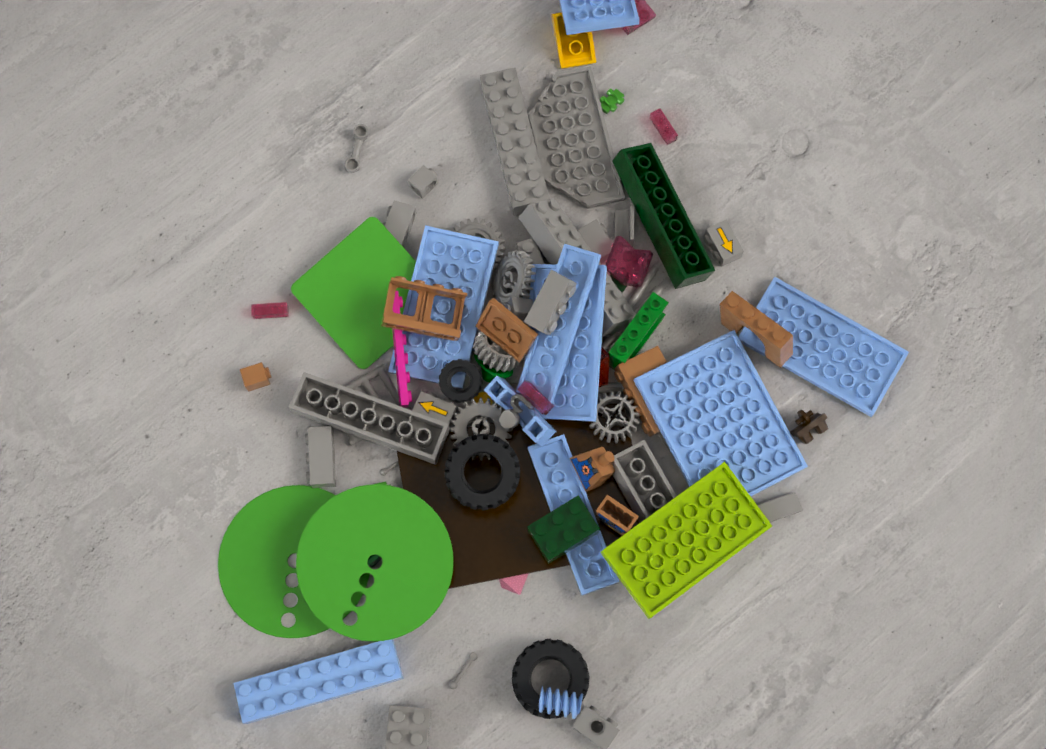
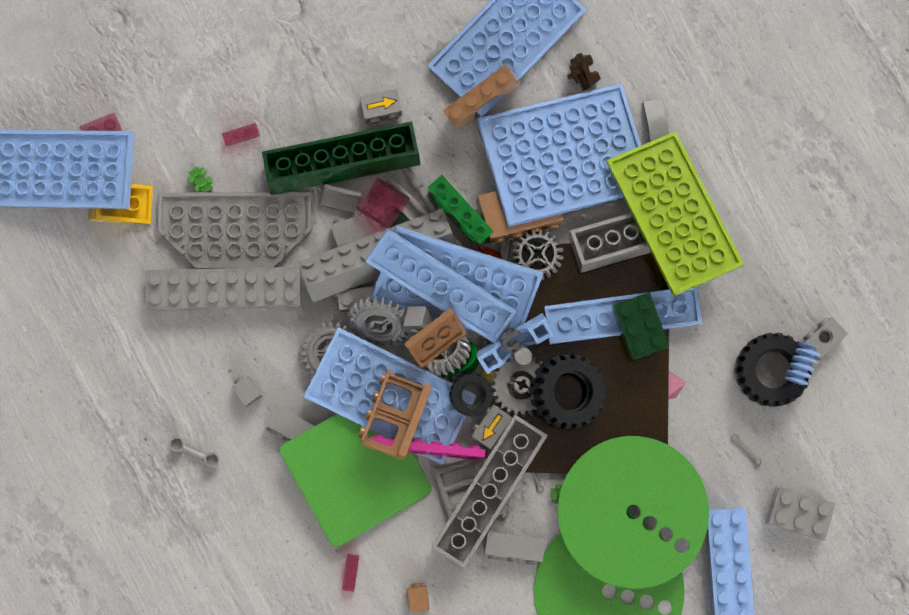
camera: 85 degrees left, 10 degrees up
(535, 397) = (508, 324): clear pink piece -> none
(550, 302) = (423, 288): light grey brick -> none
(593, 467) = (584, 285): medium nougat torso -> none
(616, 515) = (640, 272): medium nougat torso -> none

